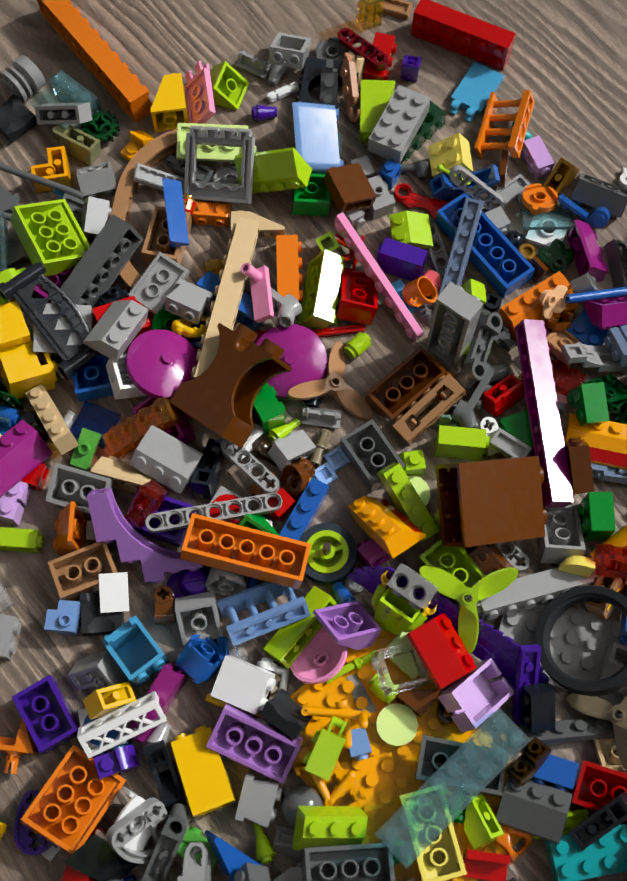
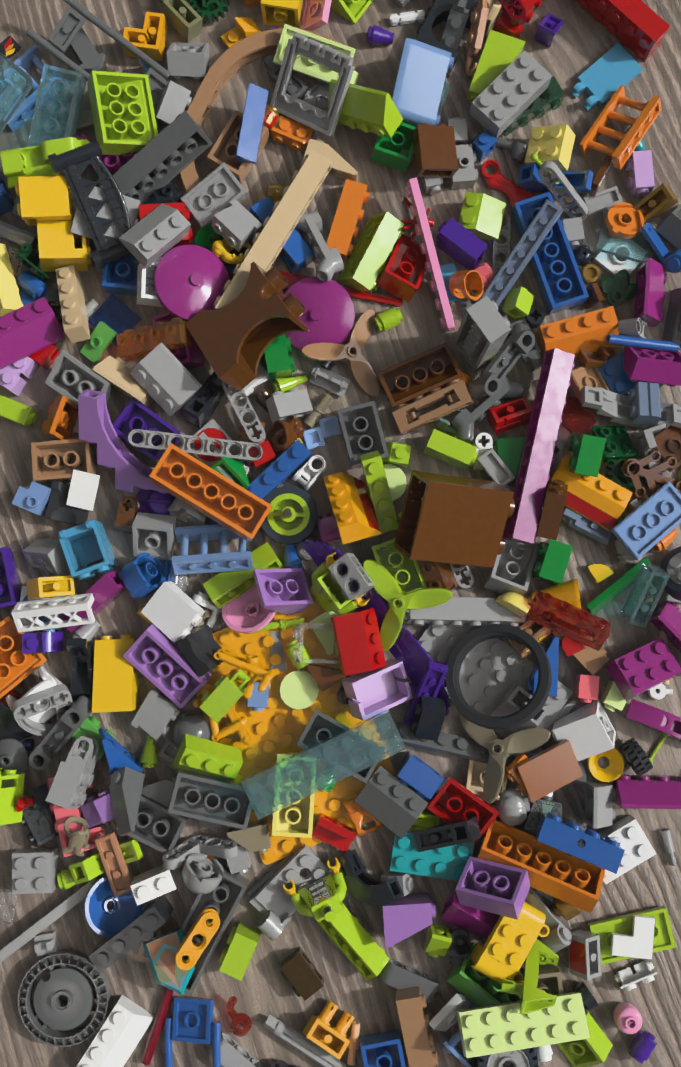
camera: 20 degrees right, 15 degrees up
(146, 502) = (135, 416): clear red slope -> none
(153, 177) = (243, 76): light grey plate -> none
(260, 291) = (309, 236): bright pink piece -> none
(328, 242) = (395, 204): lime brick -> none
(332, 509) = (309, 472): none -> white piece
(481, 823) = (341, 799): lime slope -> none
(530, 761) = (400, 764): dark brown slope -> none
(553, 301) = (594, 335): light nougat plate -> none

